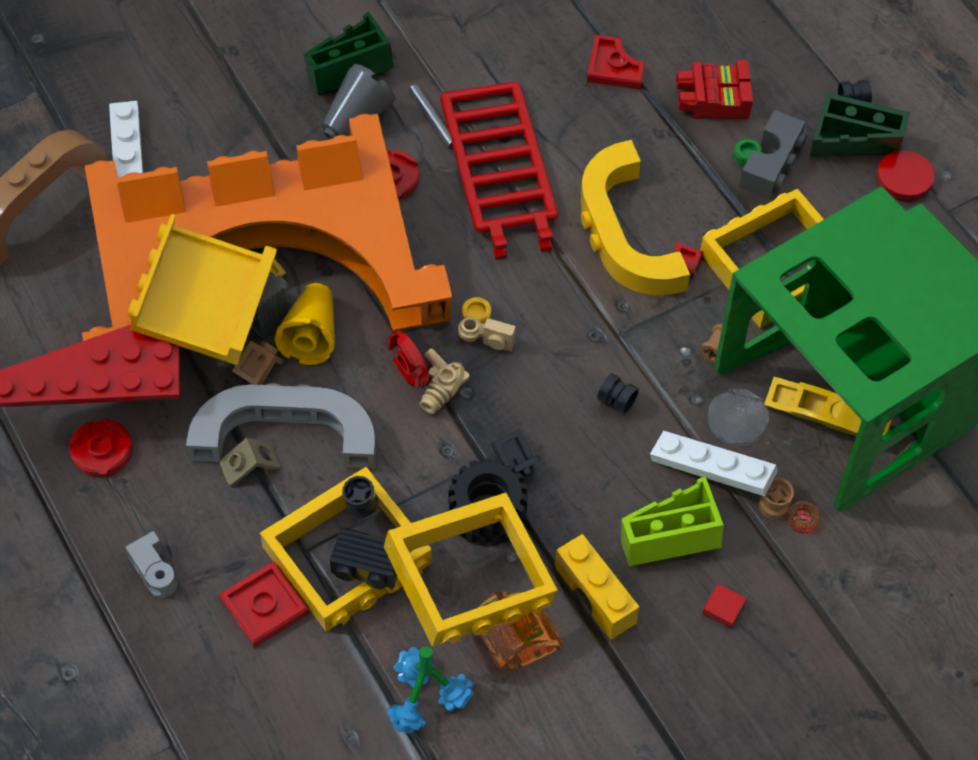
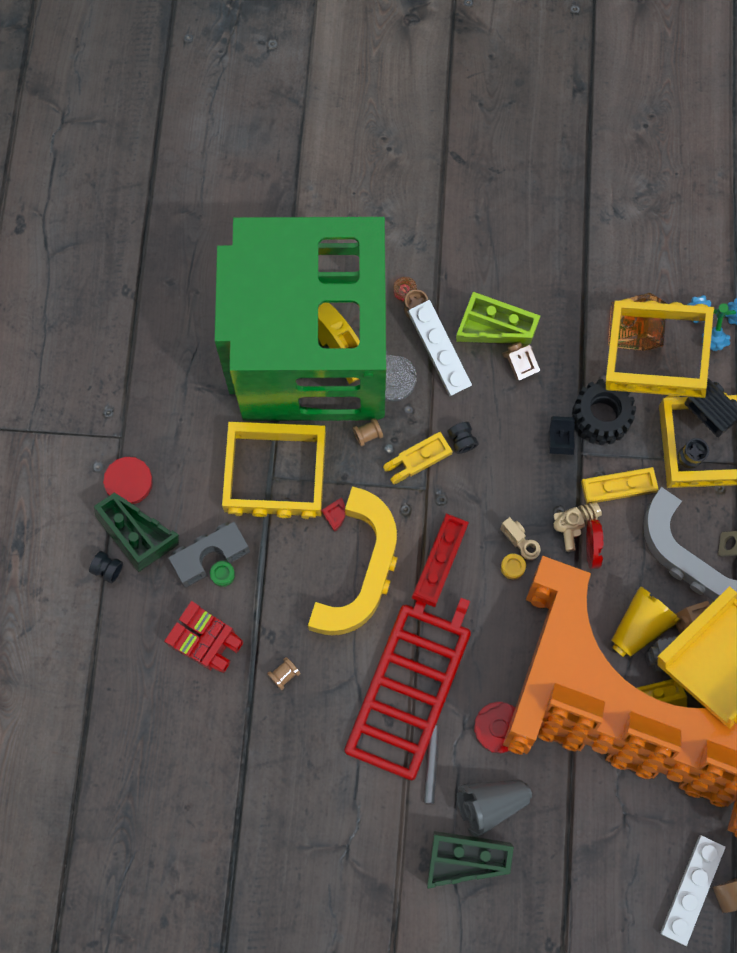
camera: 145 degrees left, 15 degrees up
(419, 450) = (619, 485): none -> yellow tile
(552, 267) = (440, 560): none -> red tile
(610, 601) = (572, 317): yellow arch -> none
(613, 65) = (259, 722): red tile -> none
(613, 506) = (521, 360): none -> bracket
(623, 98) = (283, 673): none -> medium nougat bush
(646, 353) = (419, 457): none -> yellow hinge
(724, 605) = (497, 265): red tile -> none

